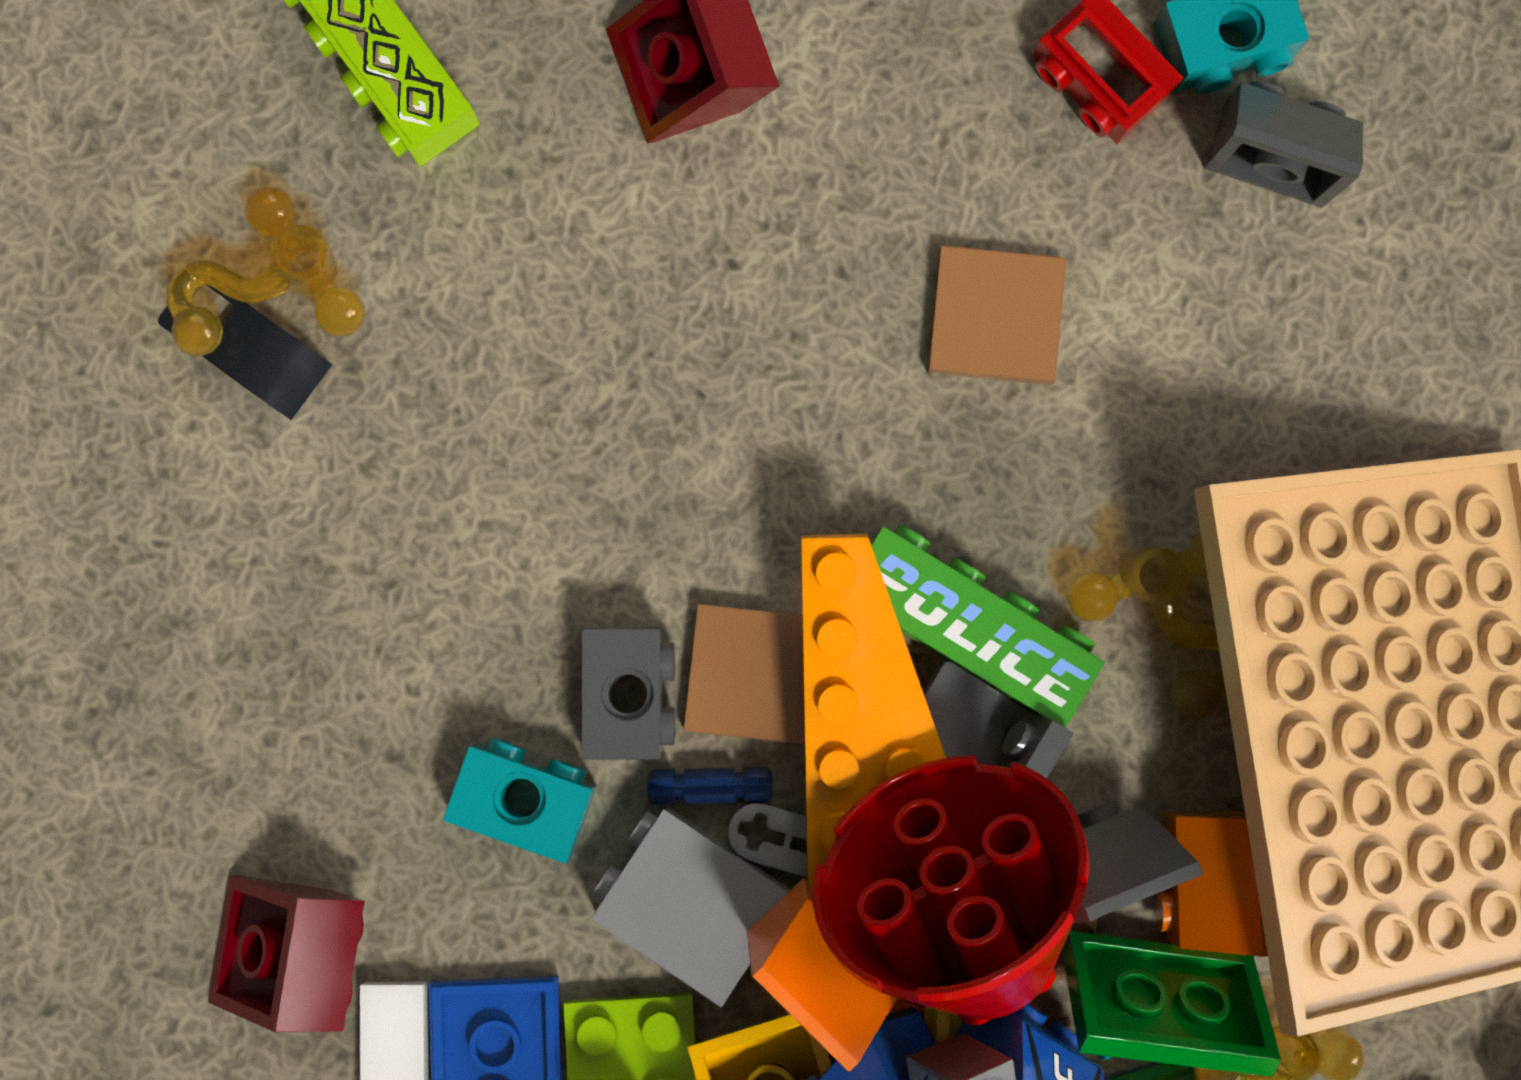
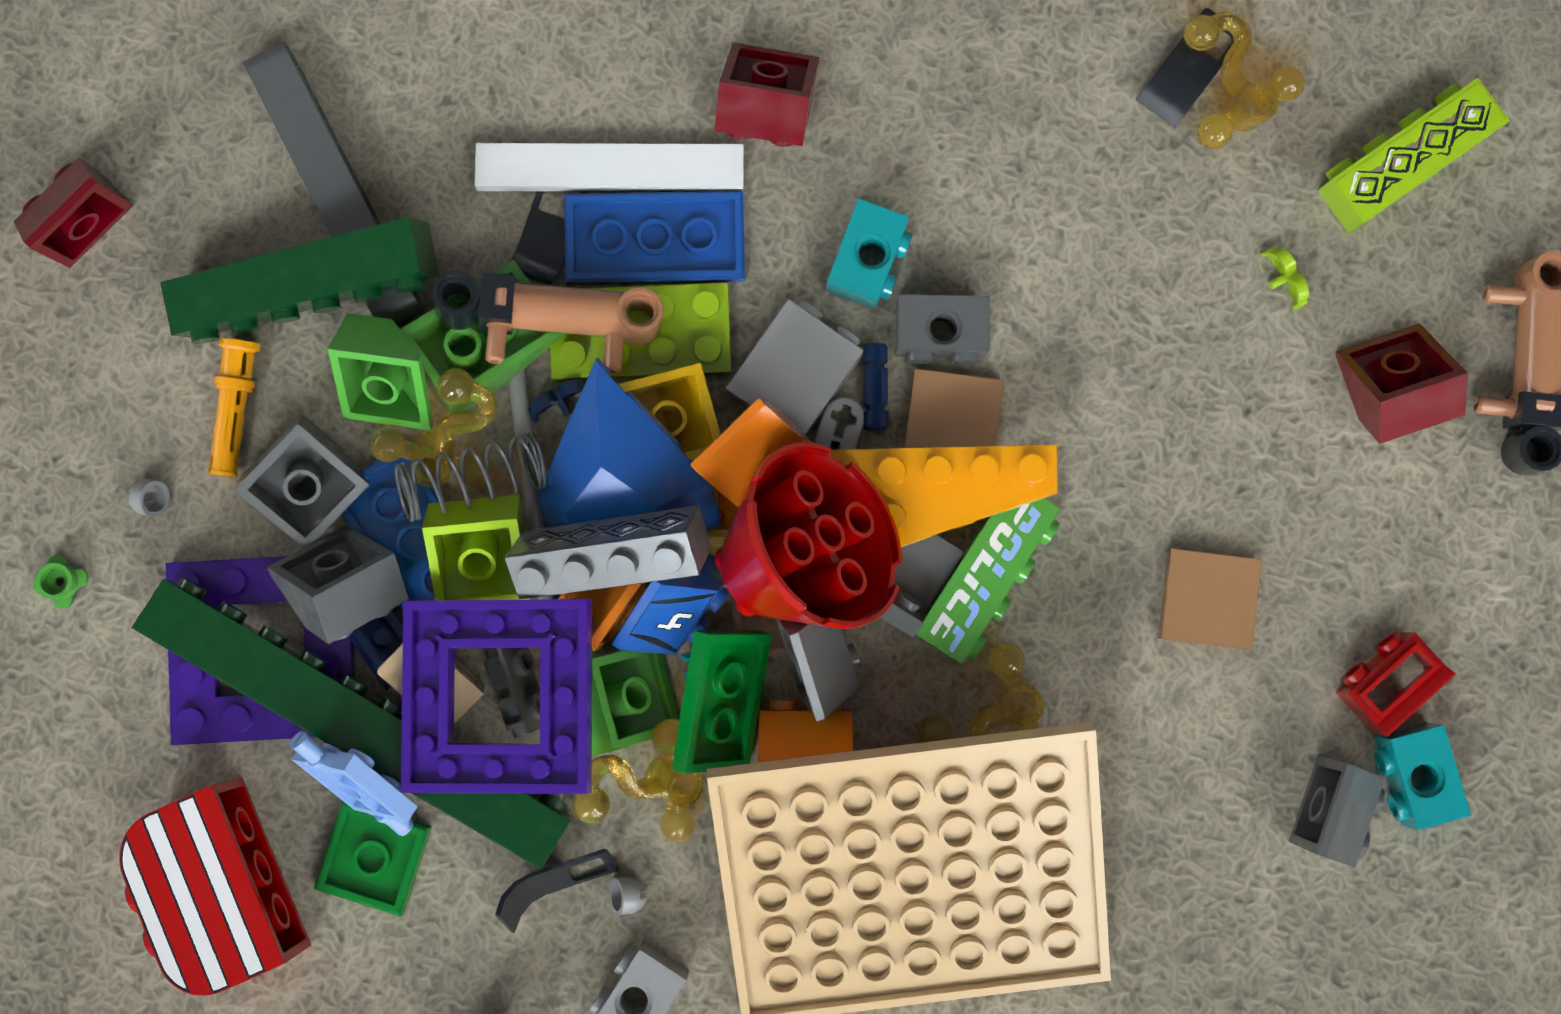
camera: 95 degrees right, 0 degrees up
(541, 206) = (1287, 268): none -> lime piece

